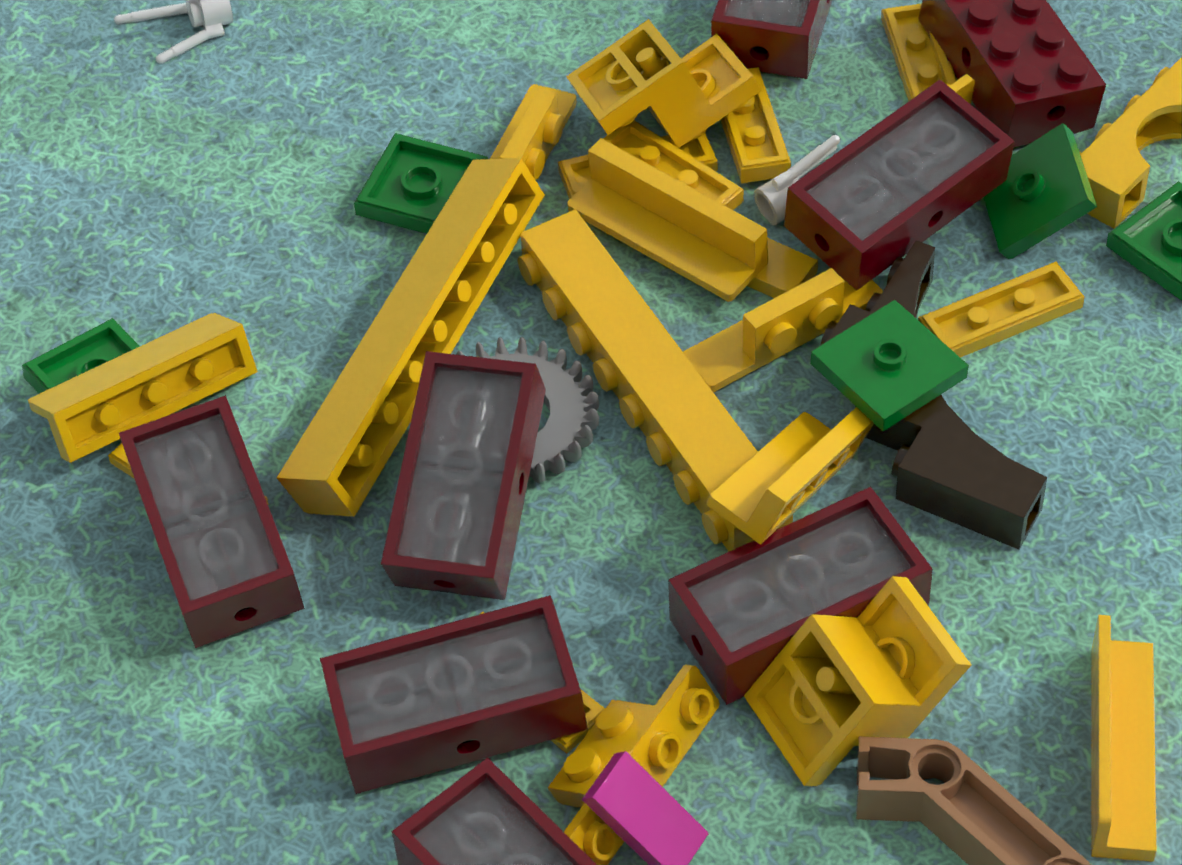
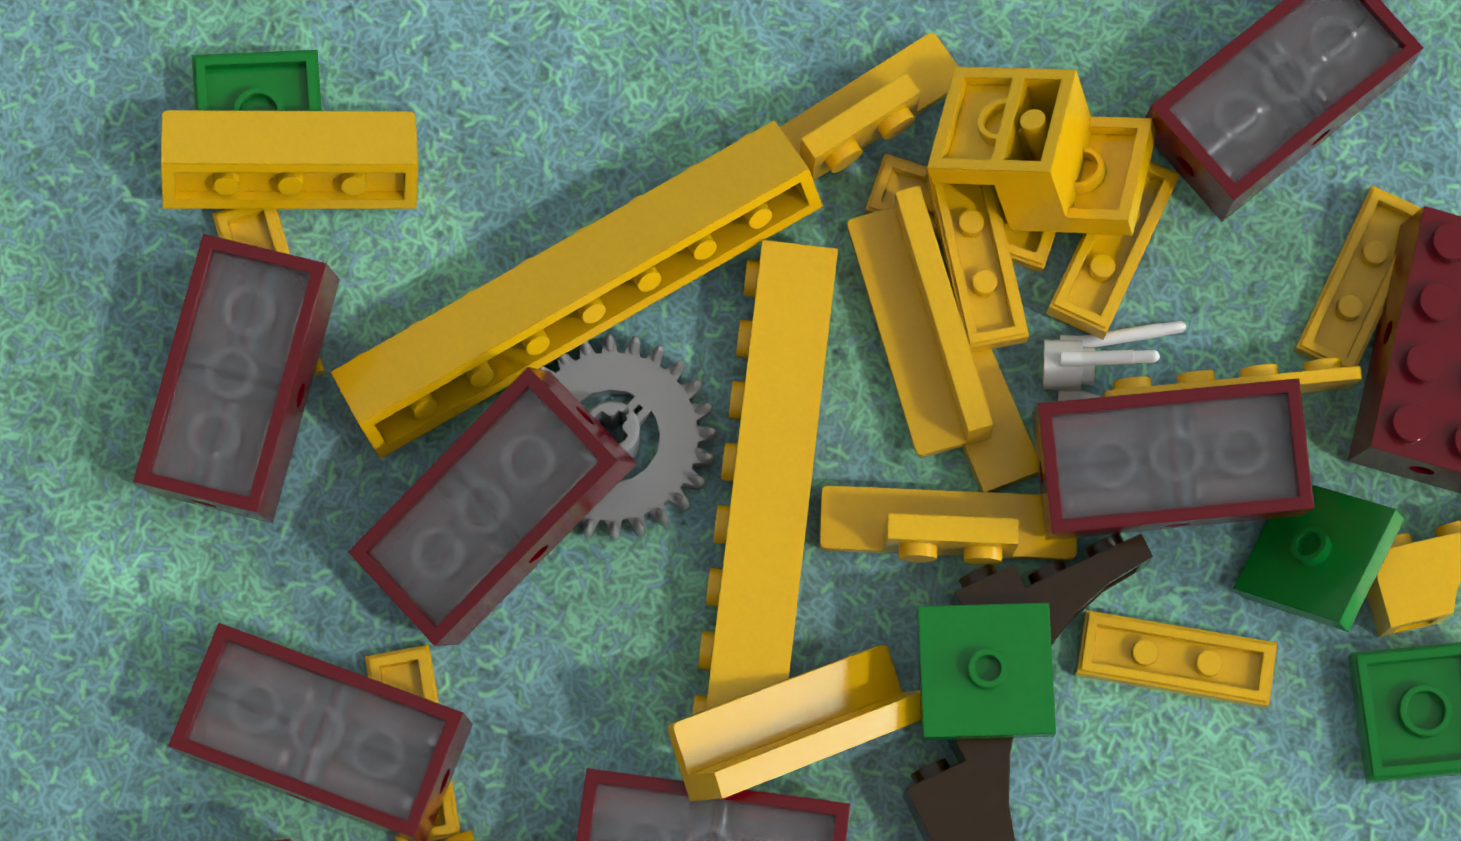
camera: 30 degrees right, 25 degrees up
(412, 182) = (726, 84): green plate -> none

